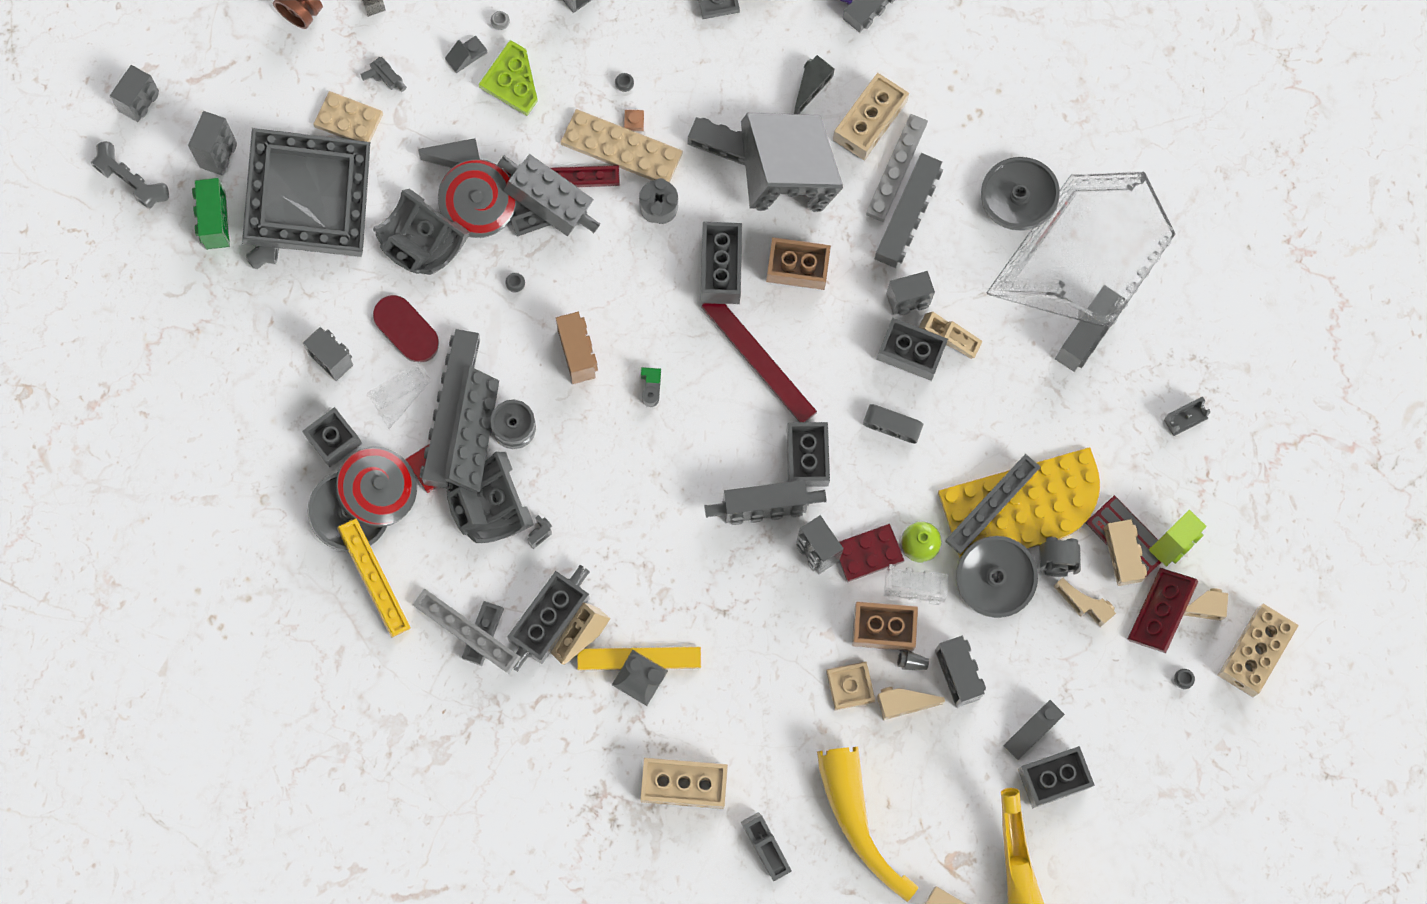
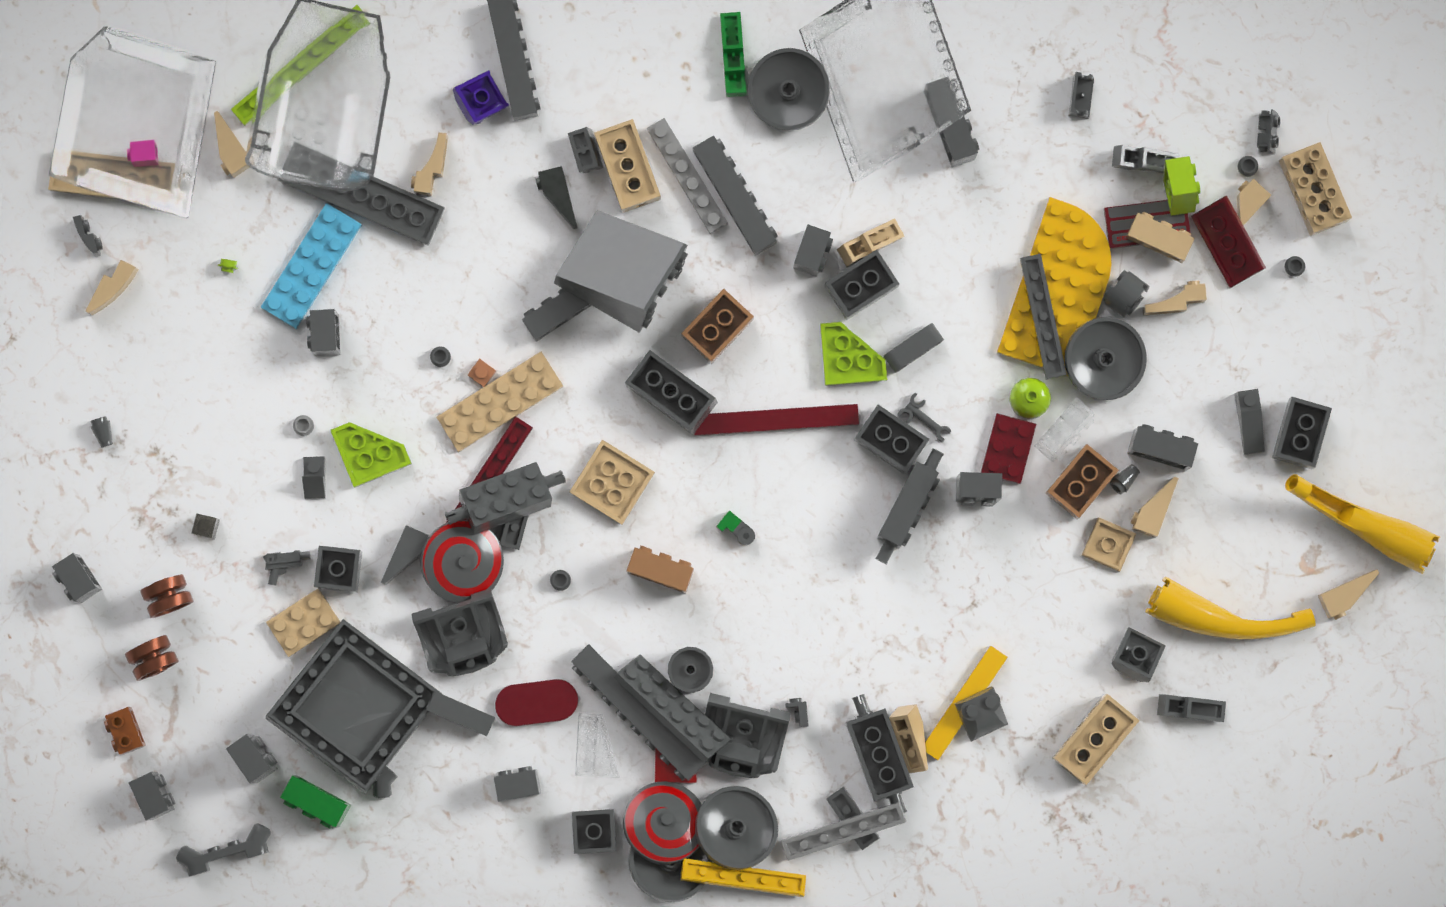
camera: 50 degrees left, 10 degrees up
(173, 45) = (124, 731): none -> dark orange brick
(242, 24) = (151, 656): none -> copper wheel
(356, 274) = (460, 713): none -> dark grey slope
(406, 113) = (338, 568): none -> dark grey brick
(410, 545) = (736, 827): none -> dark grey dish
(619, 269) = (612, 482): none -> tan plate
(658, 191) = (584, 397): dark grey brick -> none
(777, 771) = (1137, 656): none -> dark grey slope
(844, 457) = (912, 409): none -> dark grey bar
(848, 380) = (848, 357): none -> lime plate
(858, 78) = (585, 150): none -> dark grey hinge
(1014, 138) = (733, 54): none -> green slope
(1172, 493) = (1140, 158): none -> dark grey slope
(1234, 585) = (1247, 166): none -> dark grey plate
(1281, 577) = (1270, 123): none -> dark grey hinge

